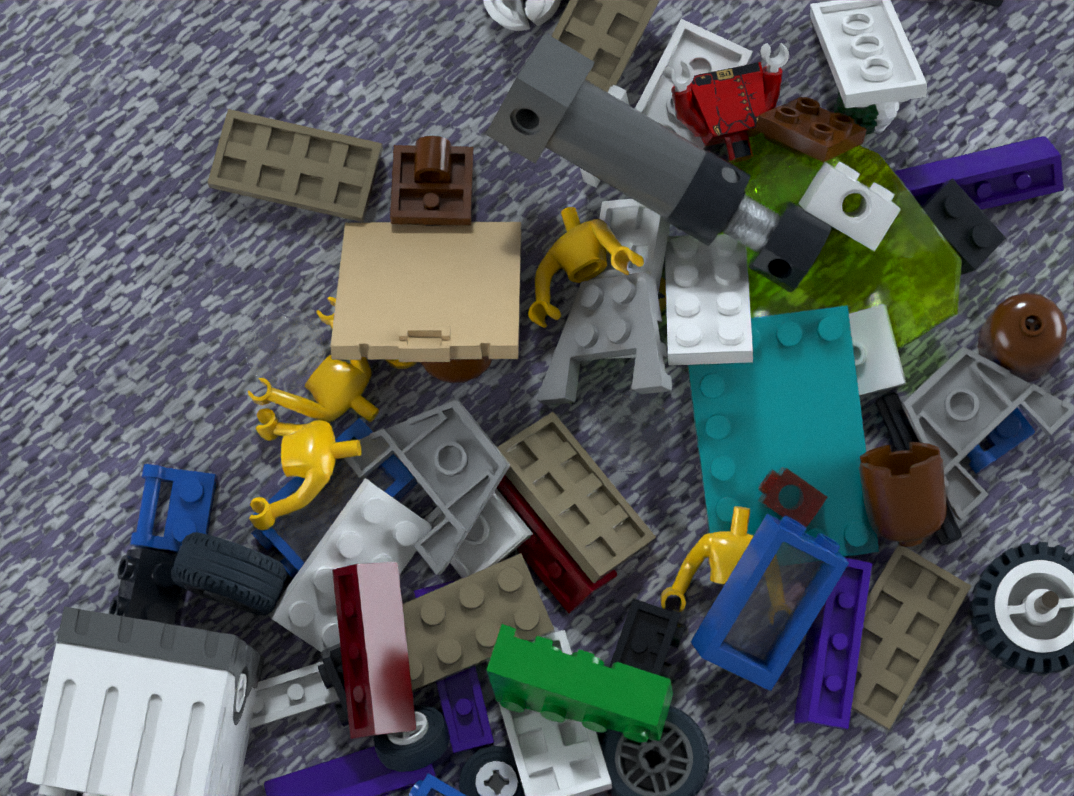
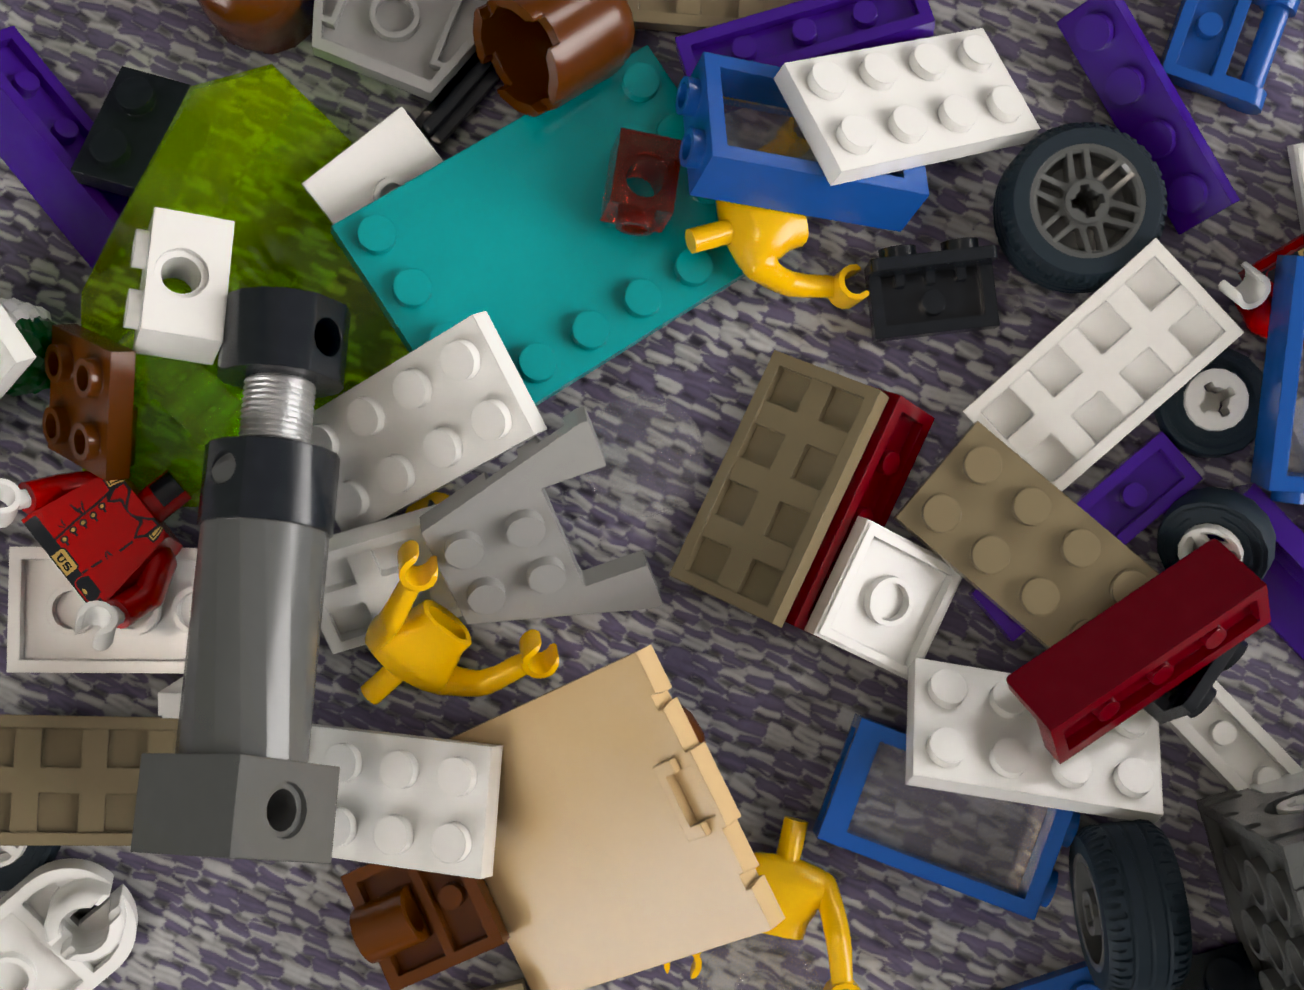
camera: 115 degrees left, 10 degrees up
(306, 453) = (915, 888): yellow piece -> none
(451, 463) = (823, 679): light grey wing -> none
(500, 199) = (412, 799): none -> white plate
(577, 687) = (1055, 341): green wedge -> none
(763, 677) = (905, 105): none -> white plate

